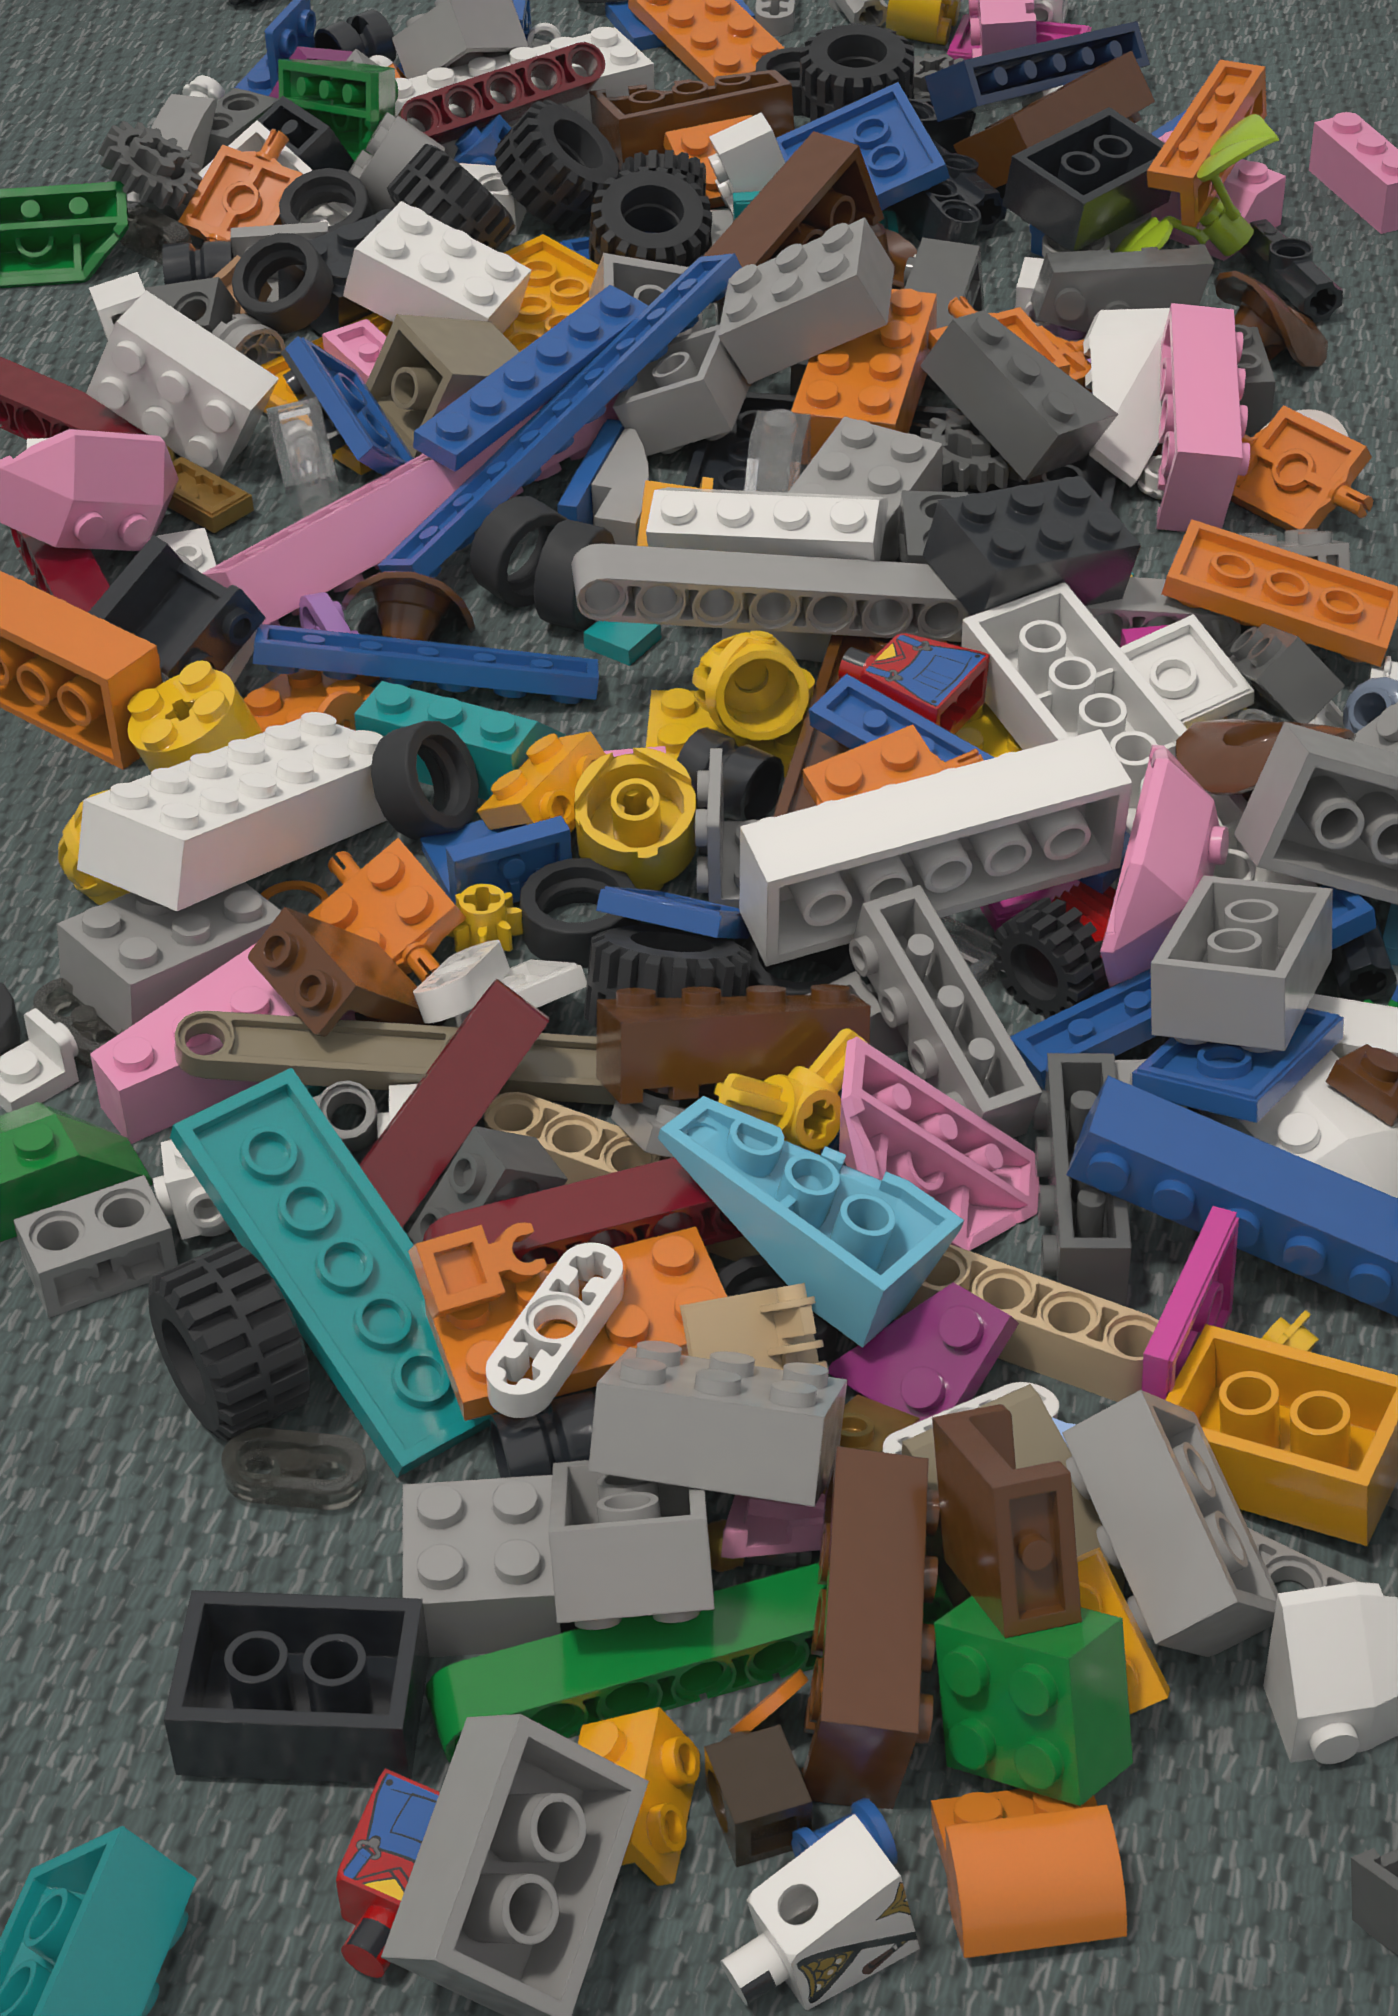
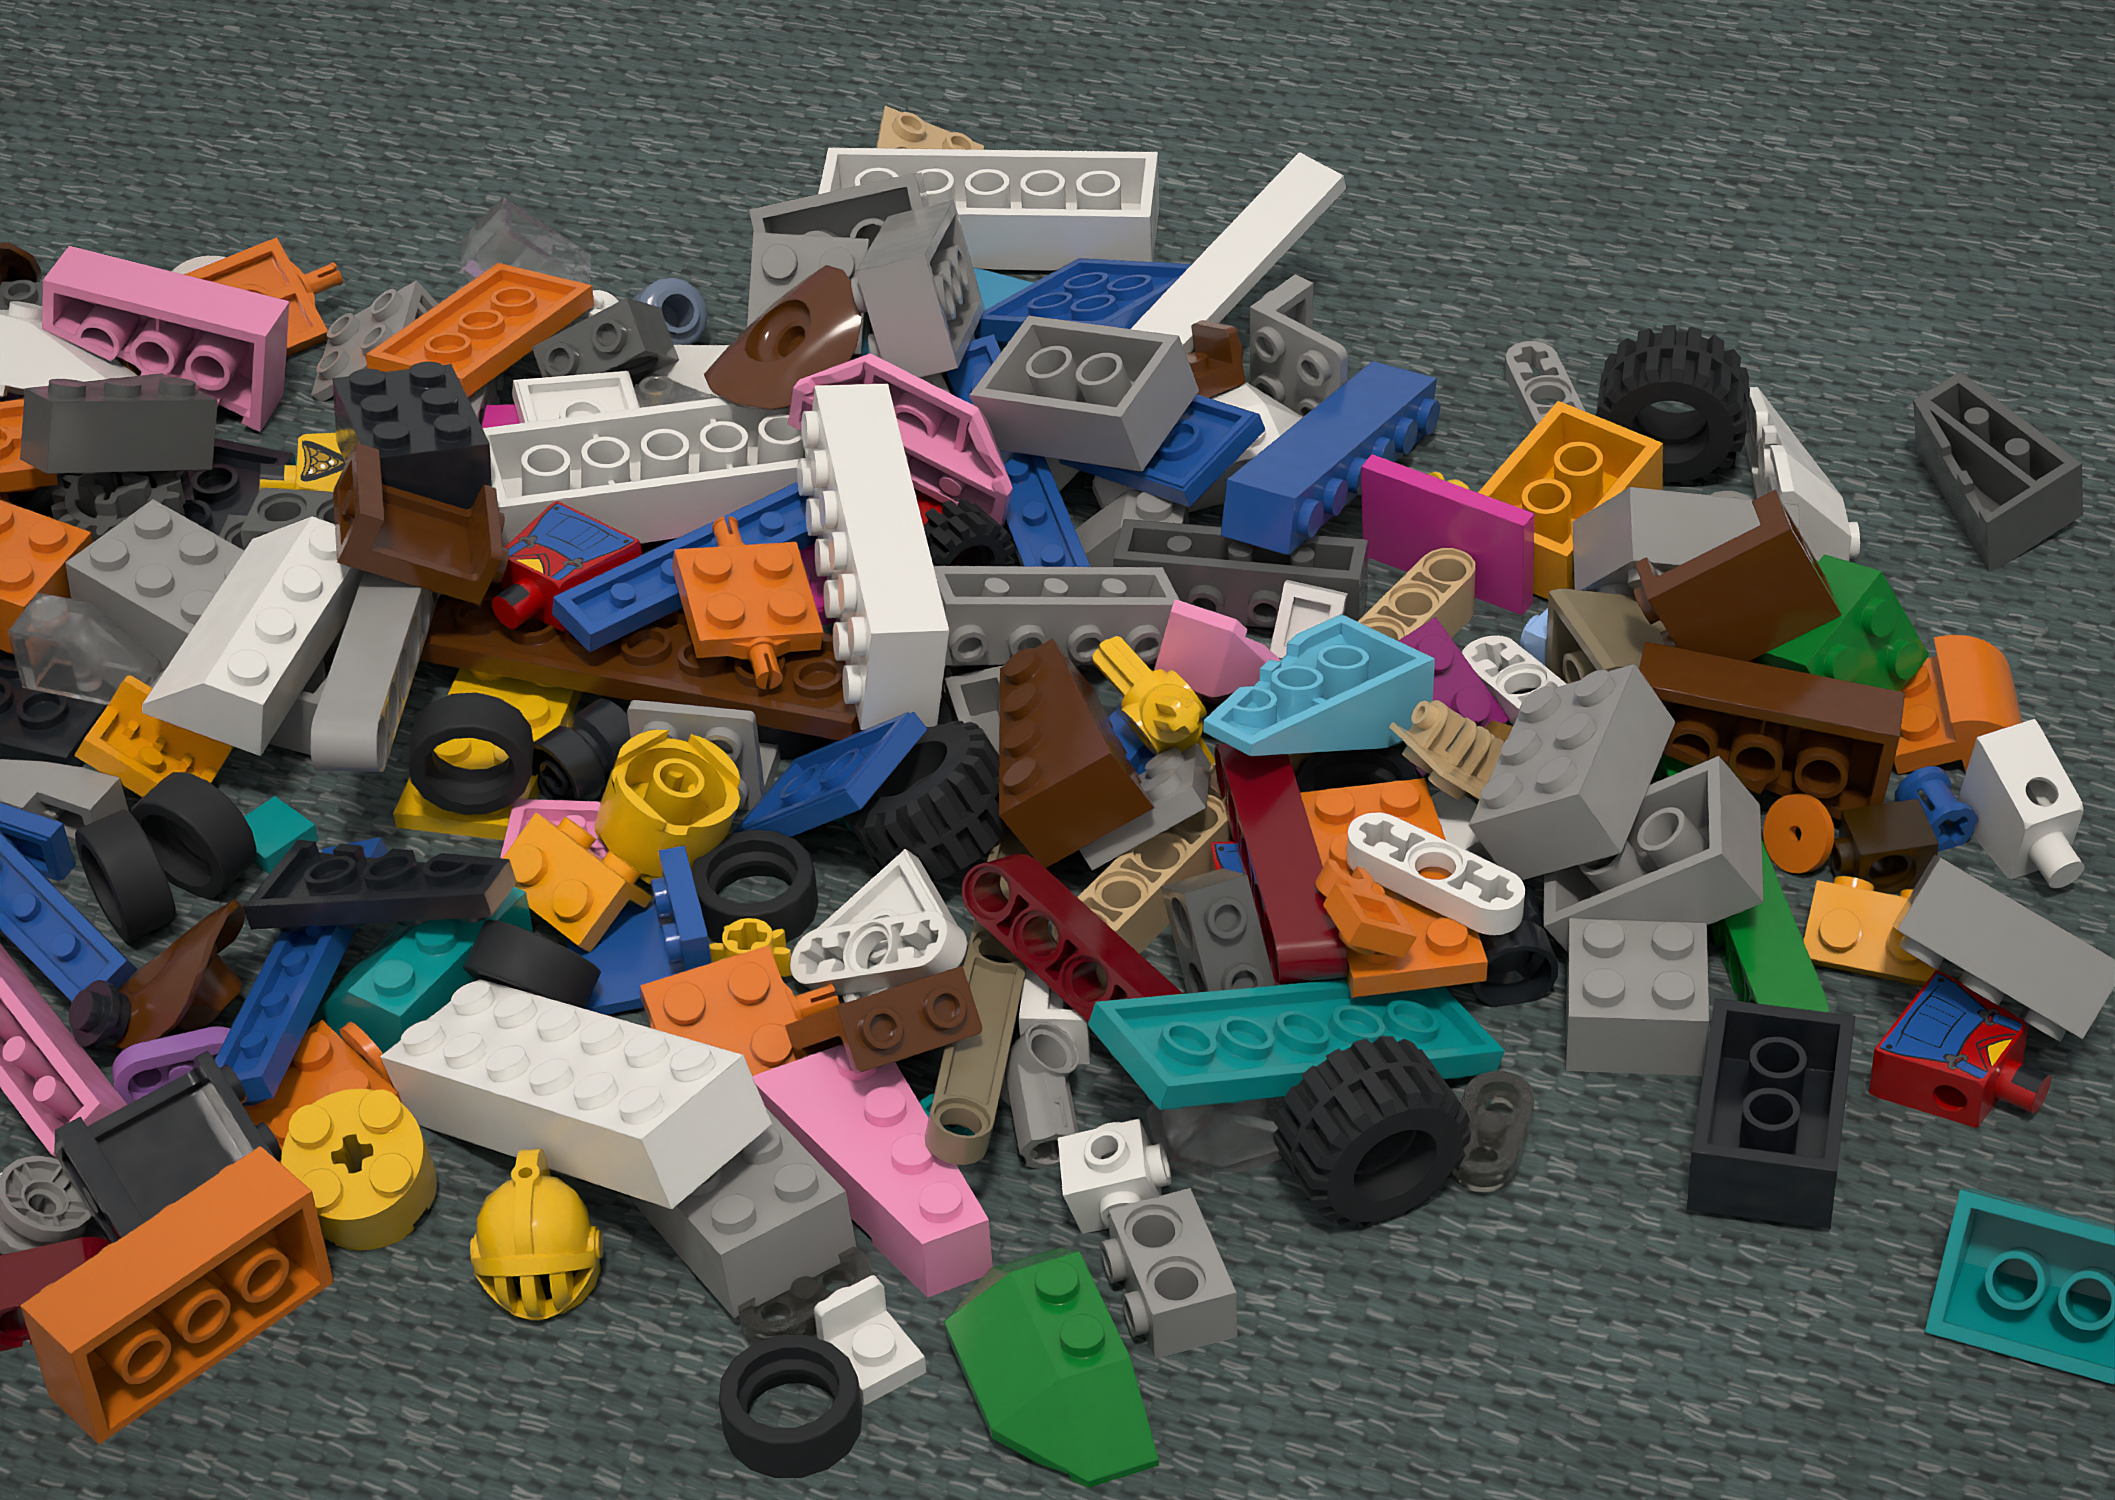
camera: 80 degrees left, 0 degrees up
(360, 567) = (99, 1015): none -> black plate
(488, 661) = (361, 890): none -> black wing
(664, 683) = (476, 789): none -> black tyre
(753, 686) = (506, 667): yellow helmet -> none
(883, 561) = (414, 535): none -> reddish brown panel
(1010, 1226) = (1303, 608): none -> white bracket

